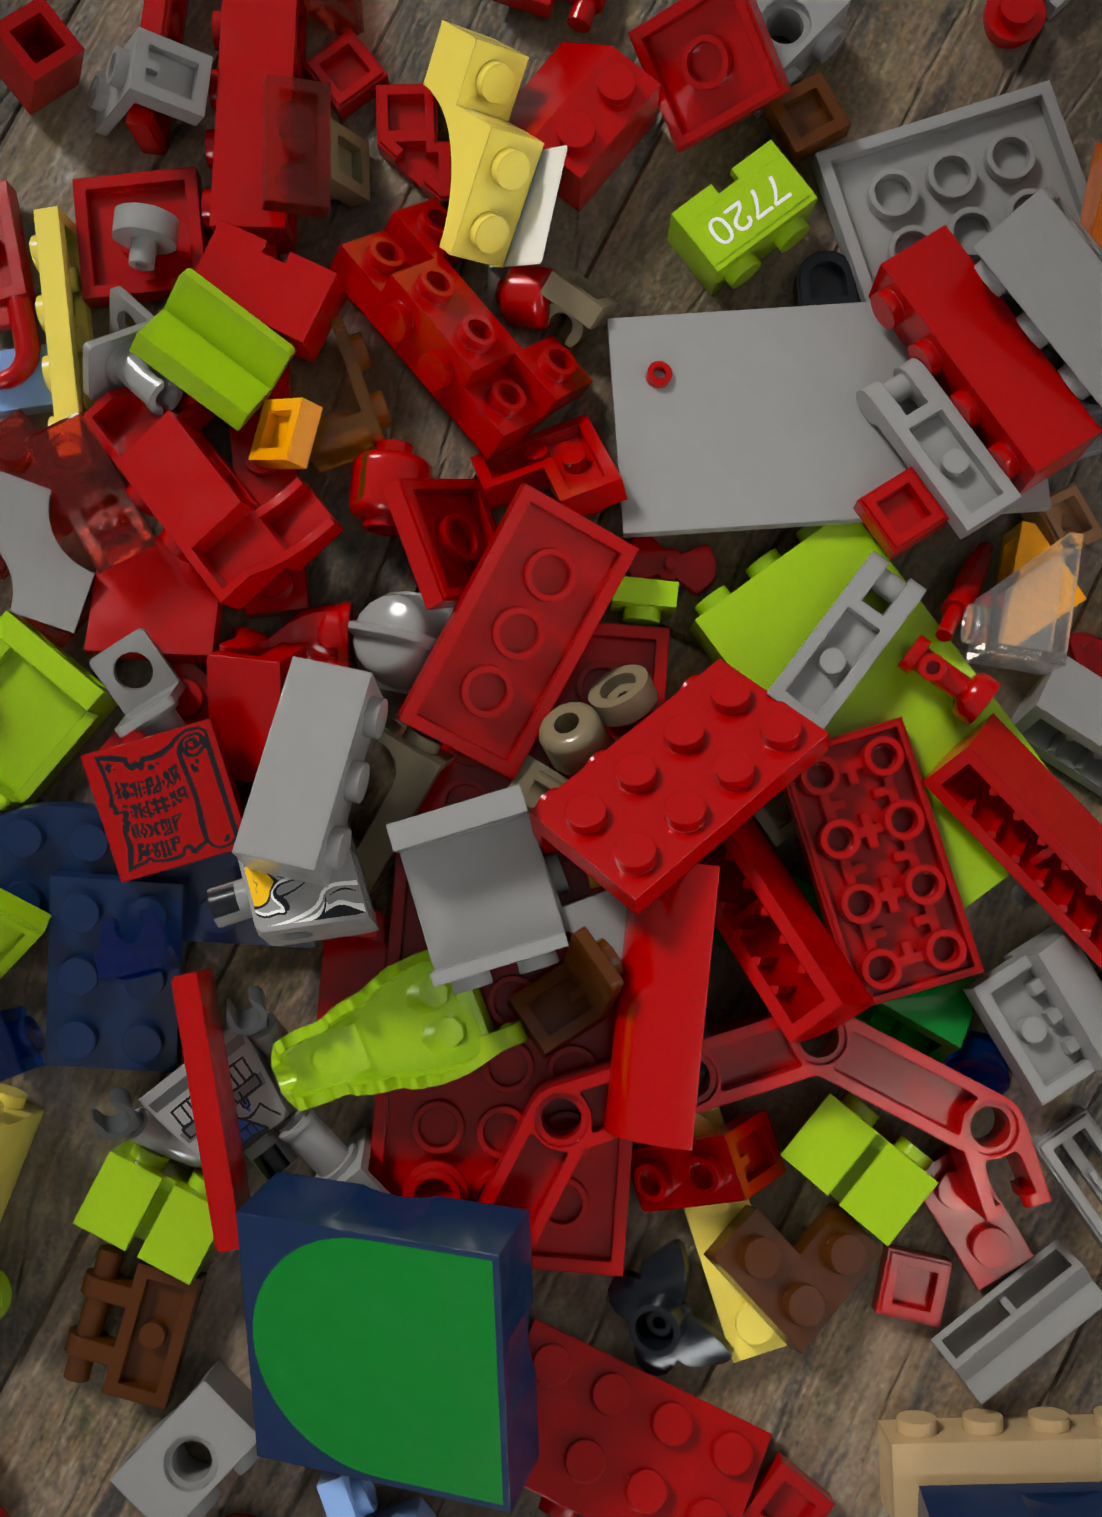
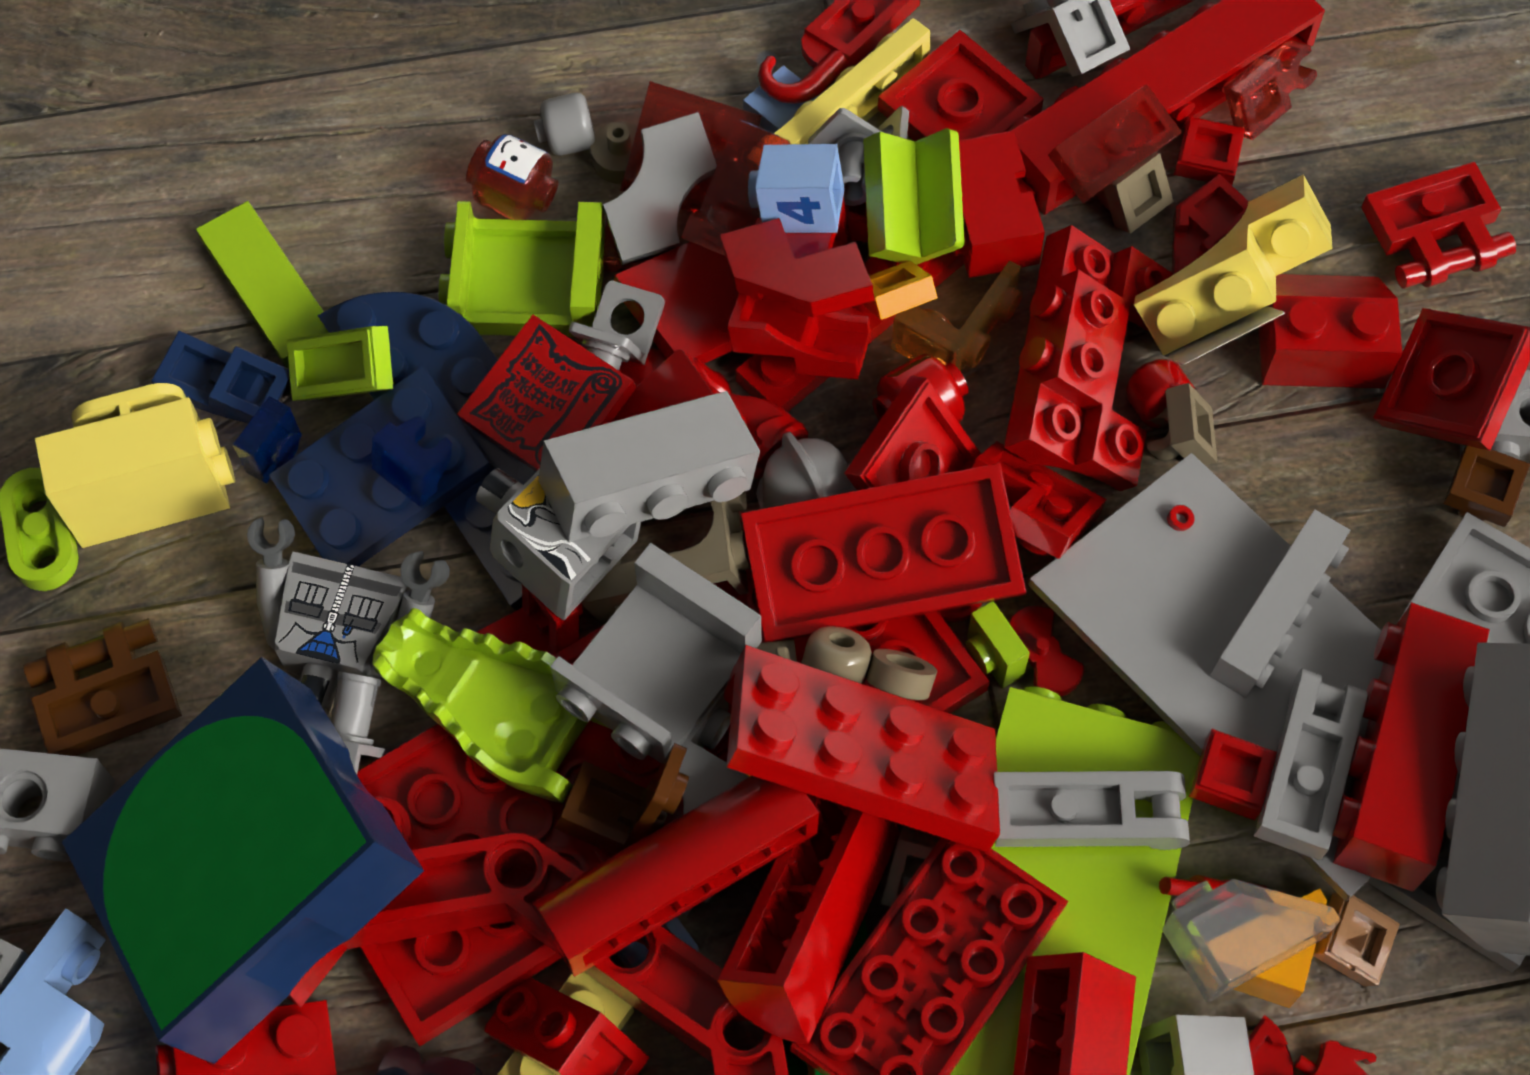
camera: 50 degrees right, 20 degrees down
(135, 443) = (799, 186): none -> light blue brick
(144, 231) = (961, 96): light grey tile -> none
(155, 1201) = (213, 629): lime piece -> none
(212, 1103) = (338, 589): red tile -> none
(239, 506) = (811, 284): none -> red tile
(732, 230) = (1379, 502): lime brick -> none
(793, 359) = (1281, 605): none -> light grey piece
(824, 279) = (1378, 597): black tile -> none
(969, 694) = (1134, 945): red piece -> none

